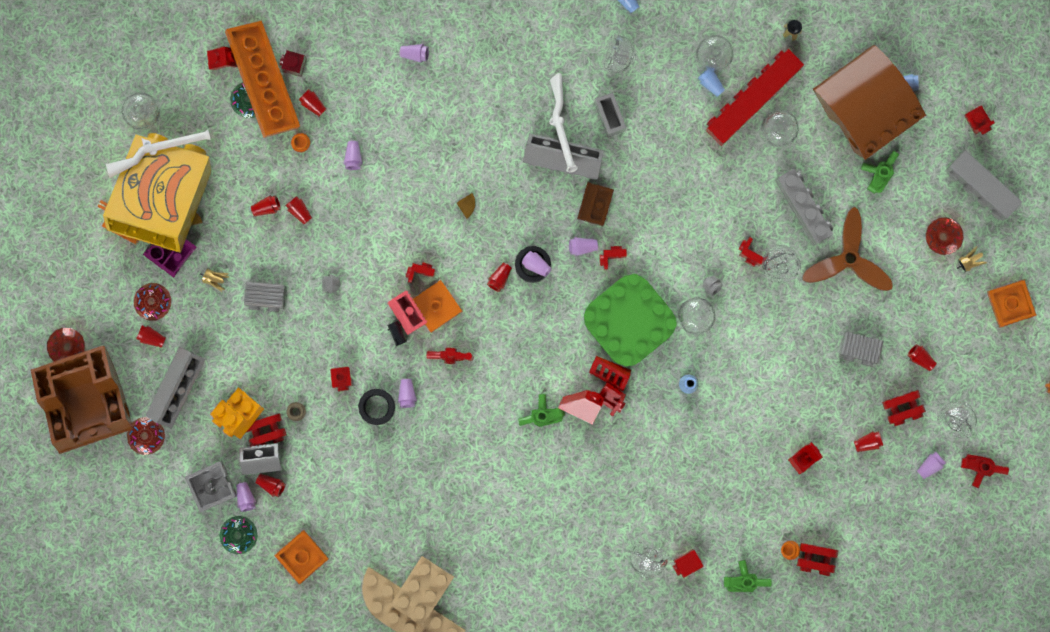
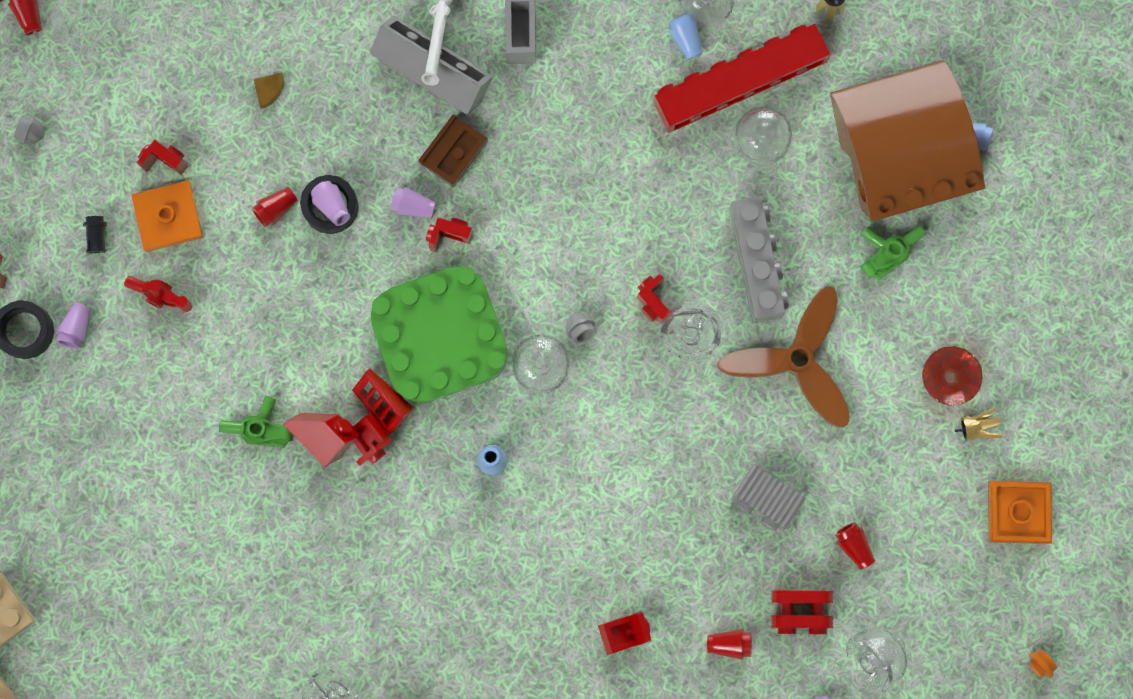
camera: 25 degrees right, 5 degrees down
(407, 312) = (118, 207): coral brick -> none
(979, 120) = (1062, 226): red bracket -> none
(984, 186) = (1037, 322): light grey brick -> none

